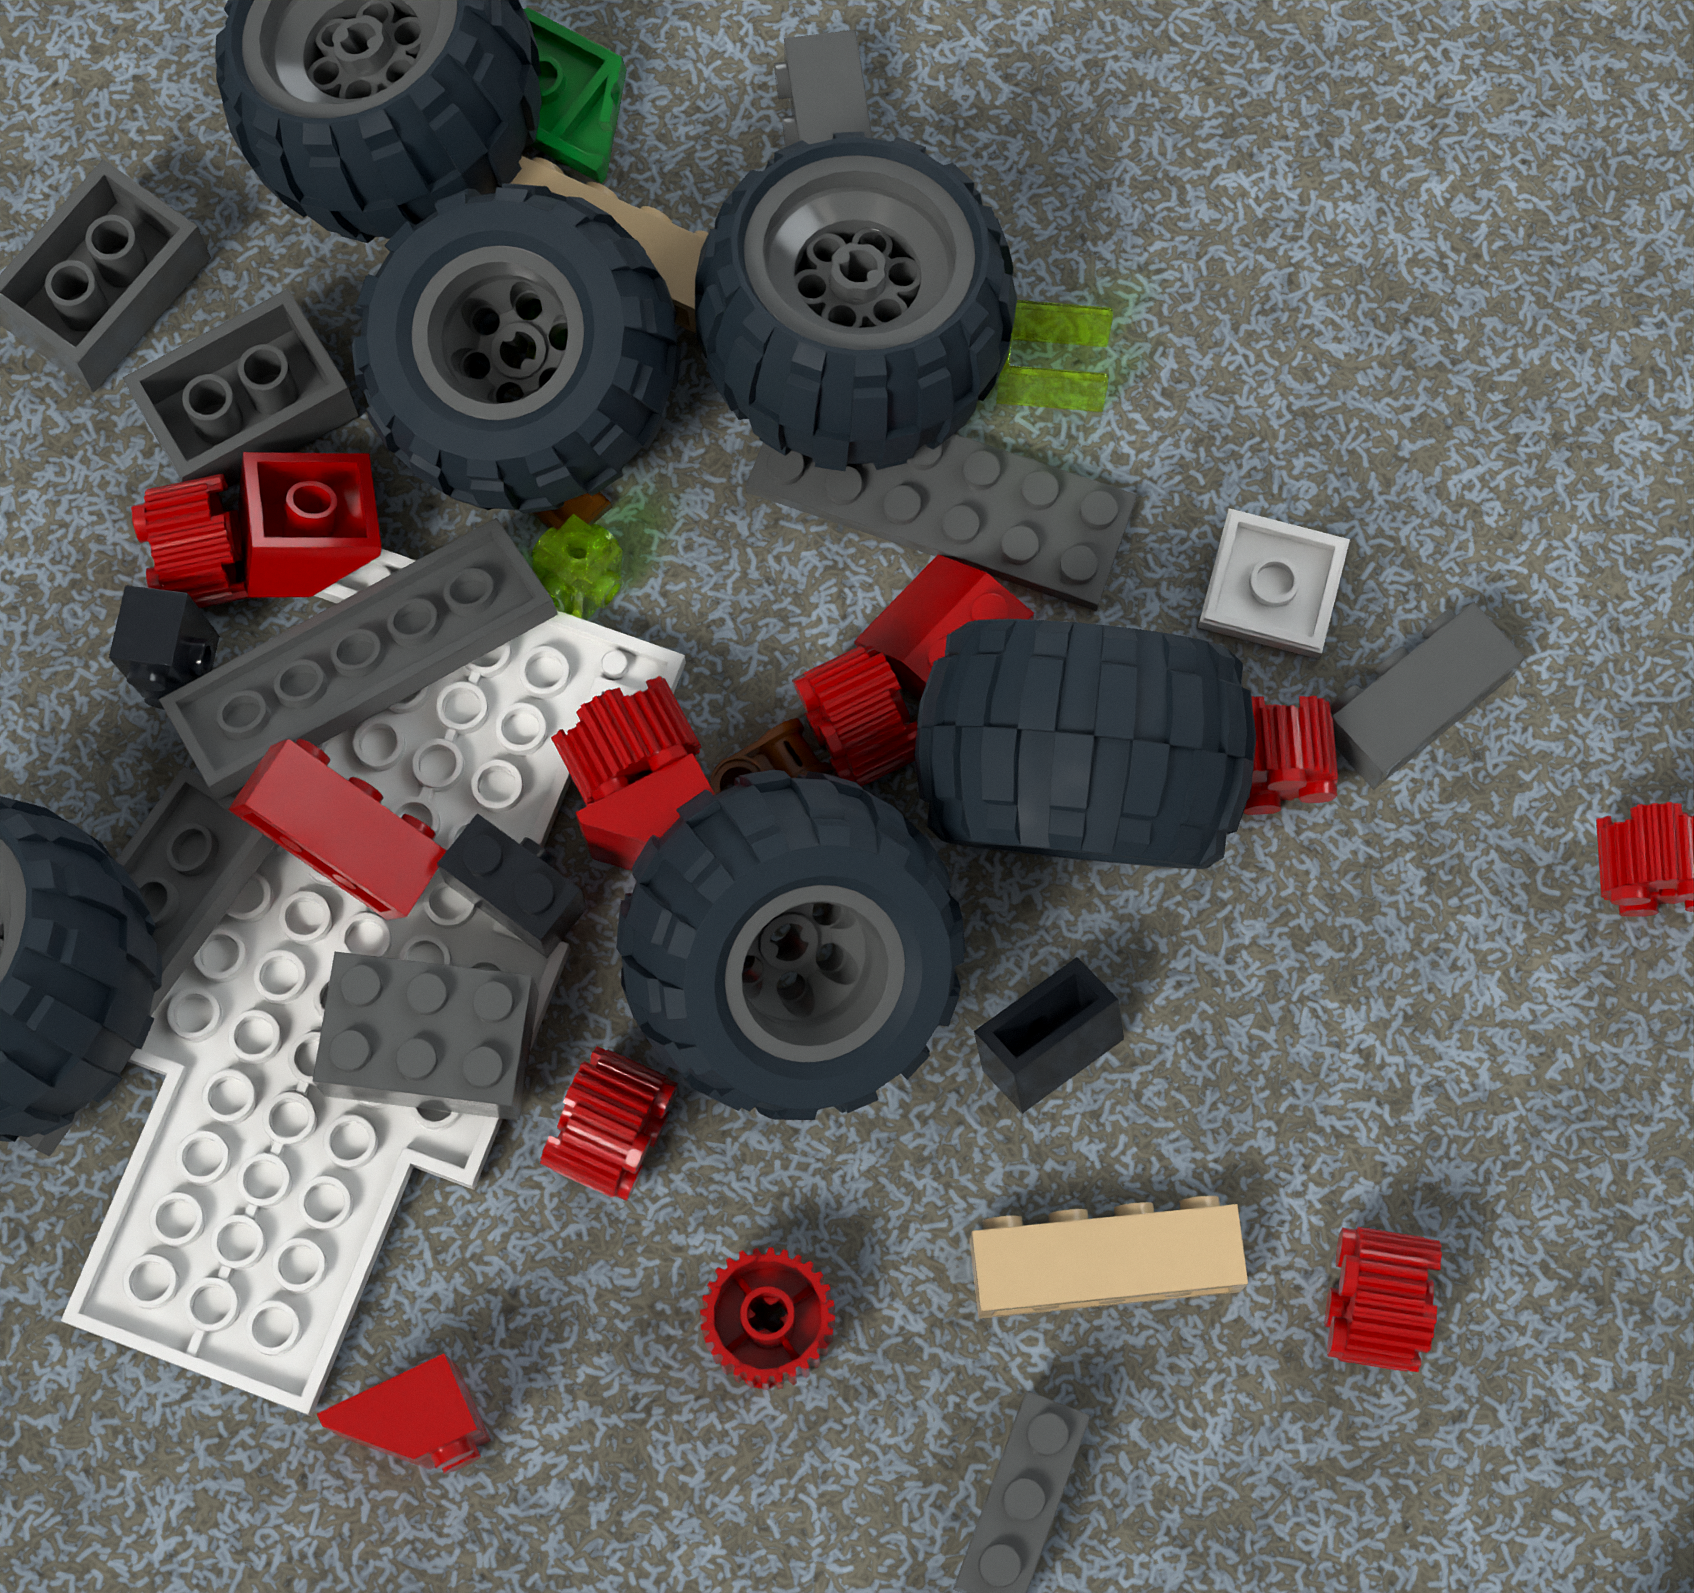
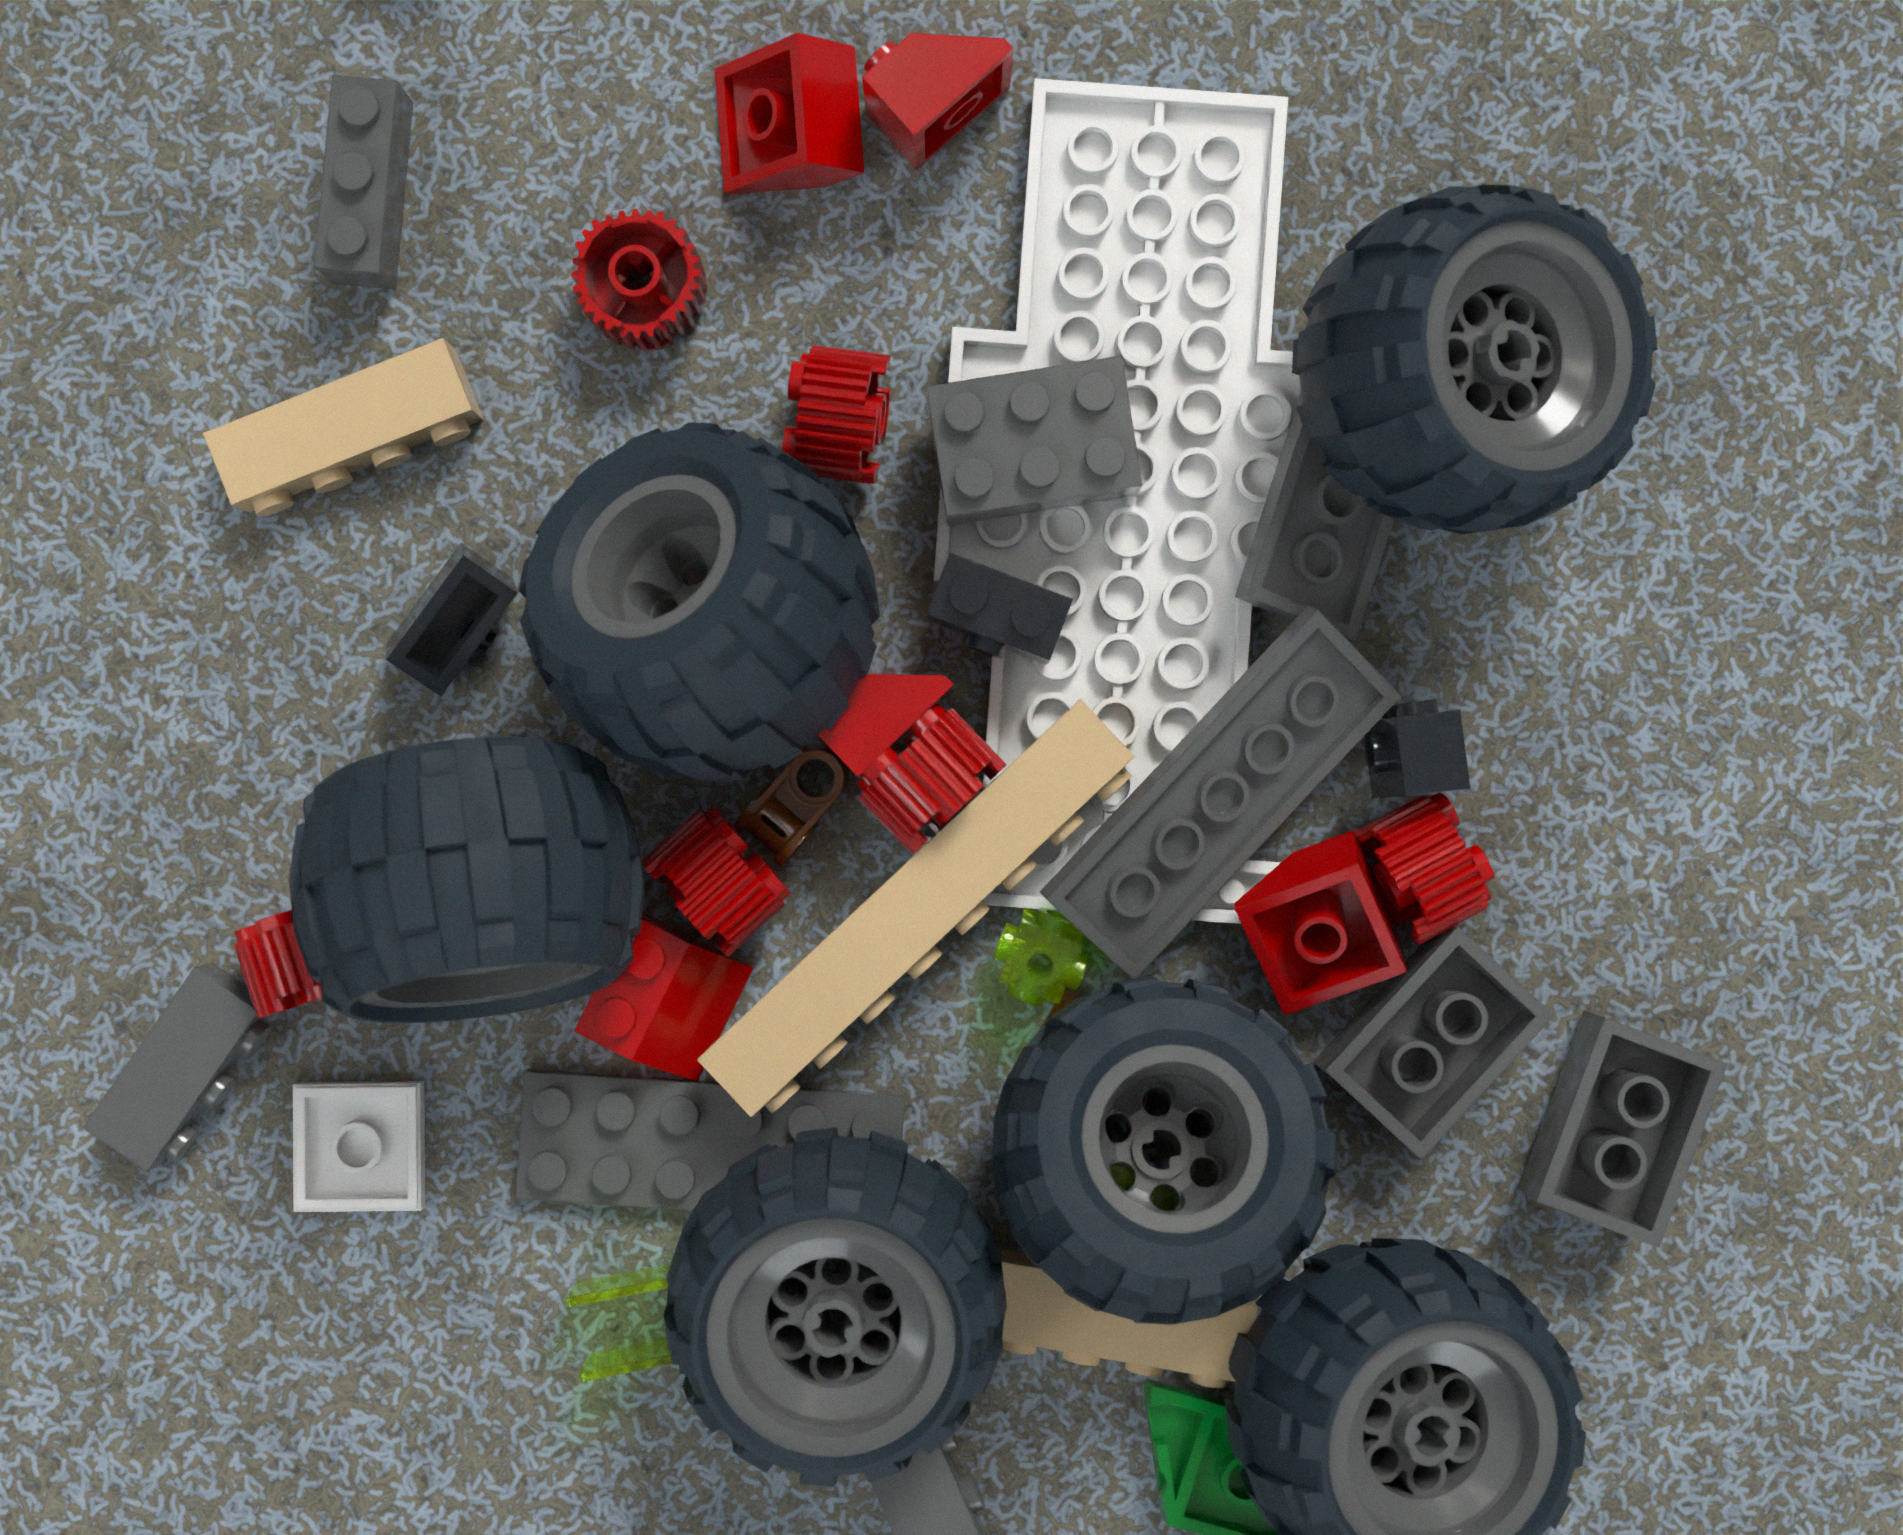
camera: 160 degrees right, 15 degrees up
(339, 828) = (1178, 608): red brick -> none
(569, 1447) = (789, 116): none -> red slope
(679, 634) = (916, 908): none -> tan brick
(1383, 1299) = (74, 454): red brick -> none

